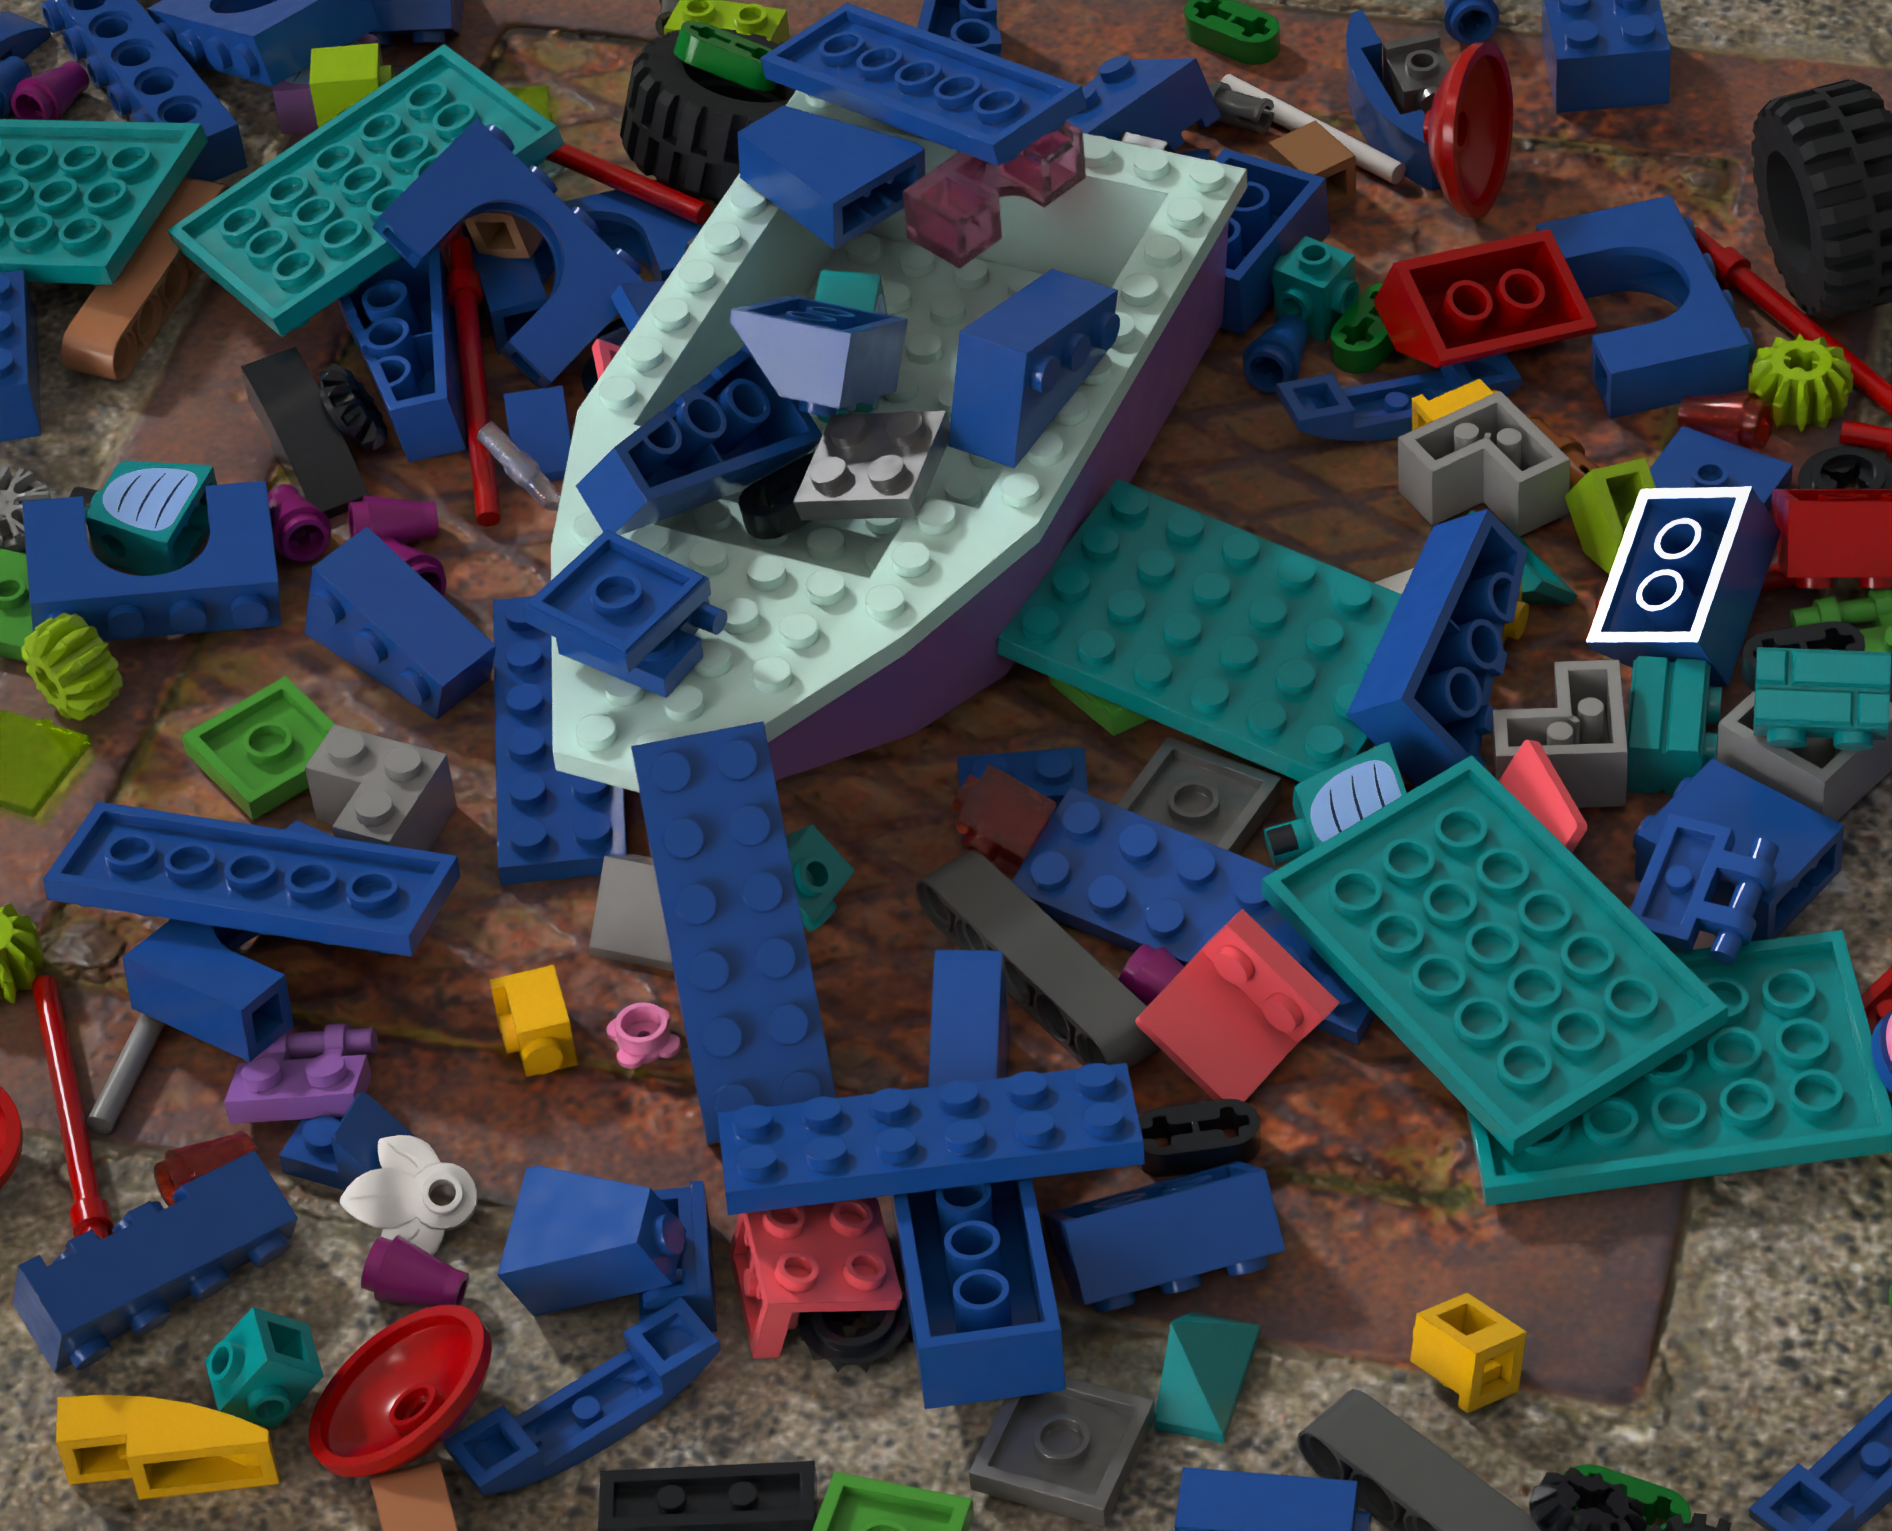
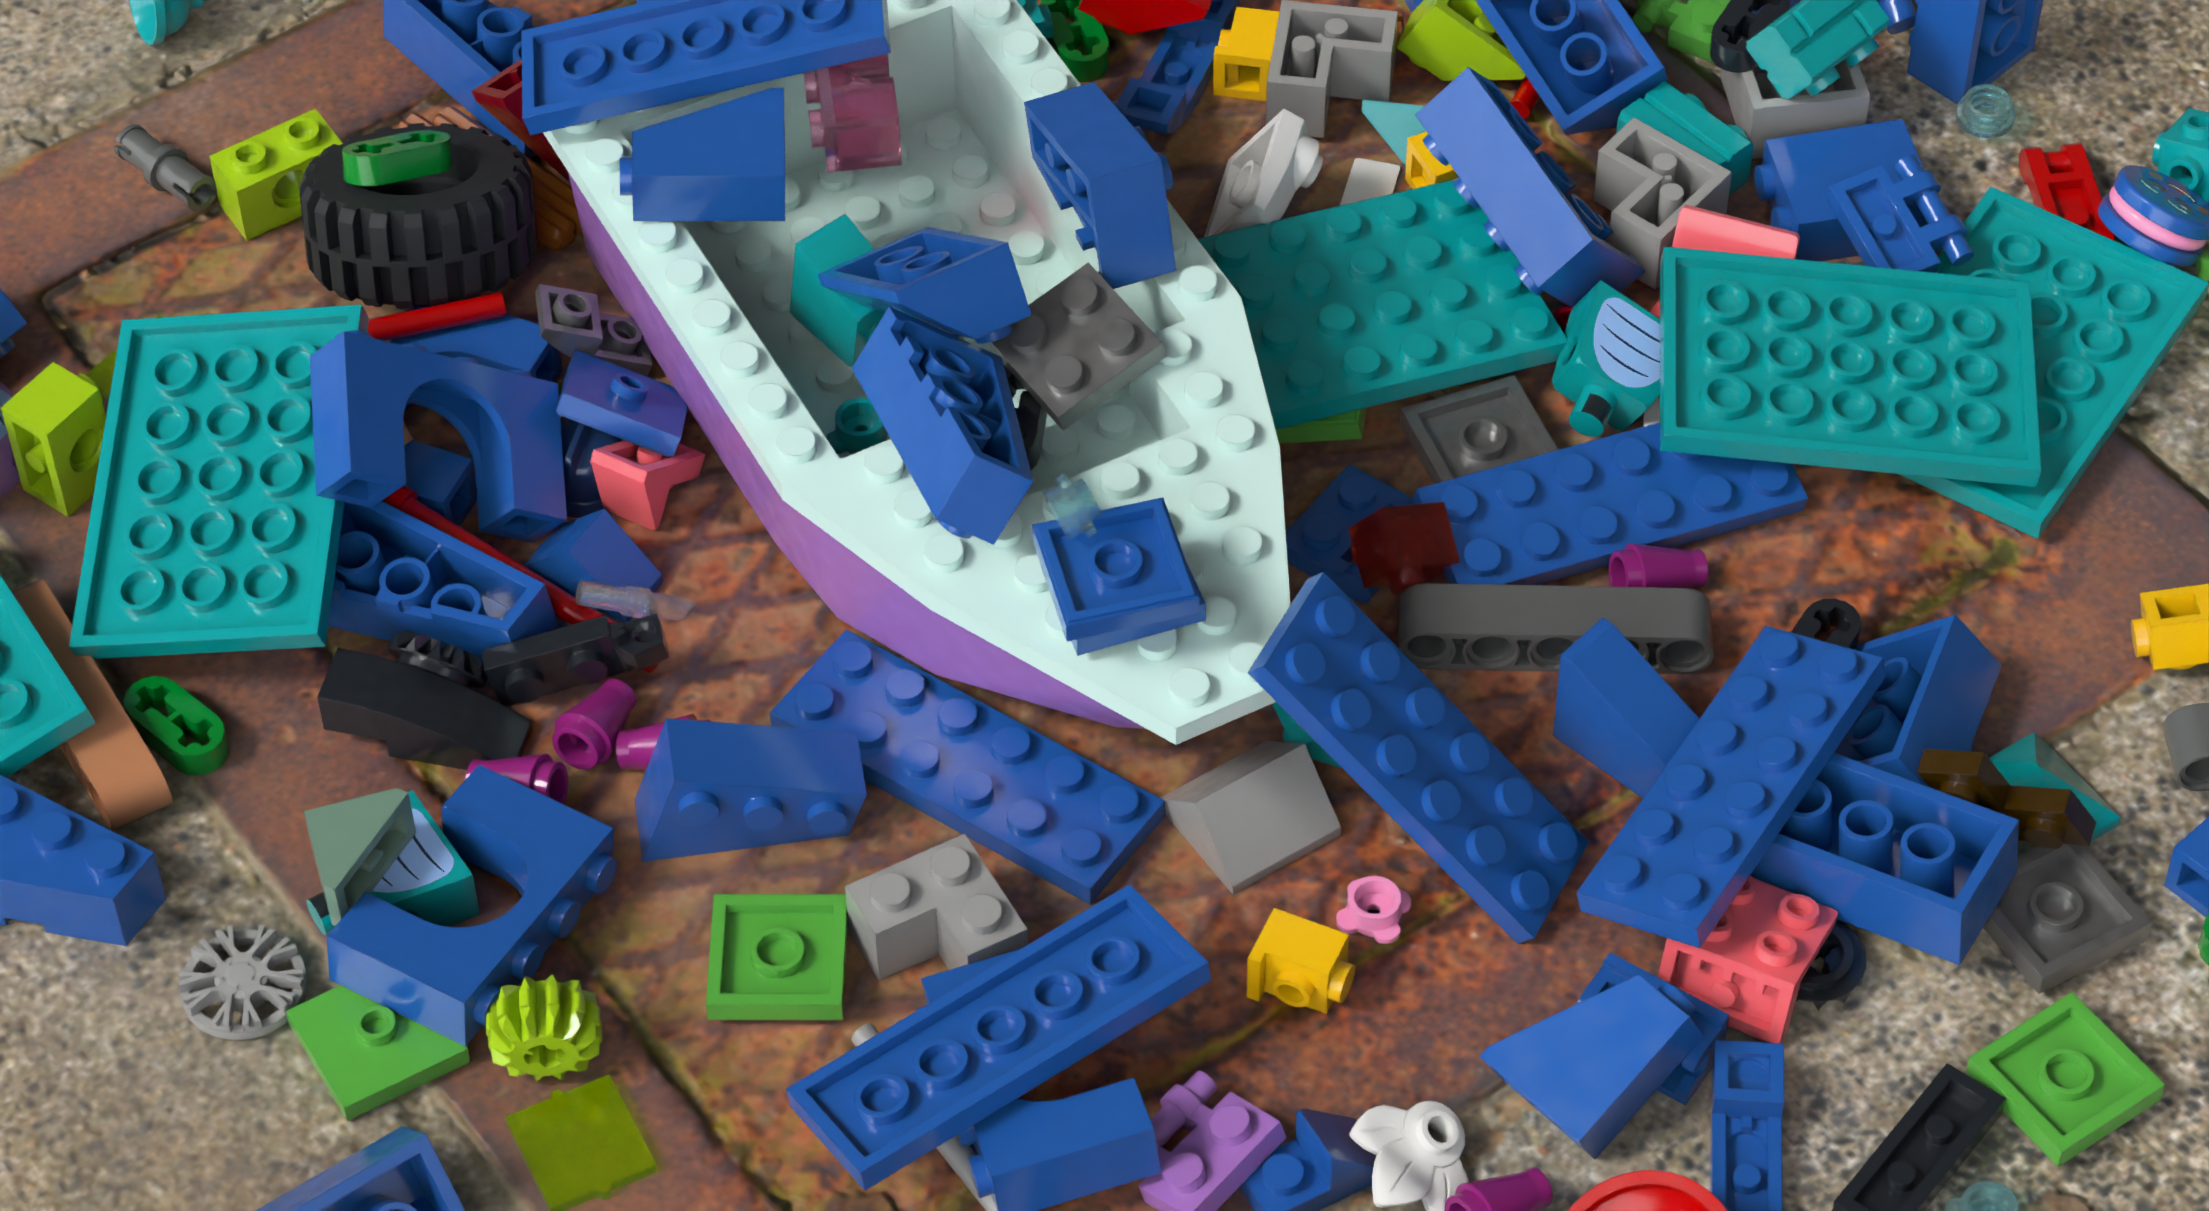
camera: 55 degrees left, 5 degrees up
(110, 464) = (358, 844): none -> sand green slope
(177, 334) = (185, 717): none -> green beam
(424, 466) = (572, 657): none -> black hinge
(620, 528) = (1073, 507): none -> clear light blue plate
(1105, 1333) = (2044, 814): none -> dark brown plate
(1235, 1010) = (1731, 531): coral bracket -> none
(1306, 508) = (1265, 175): none -> white slope

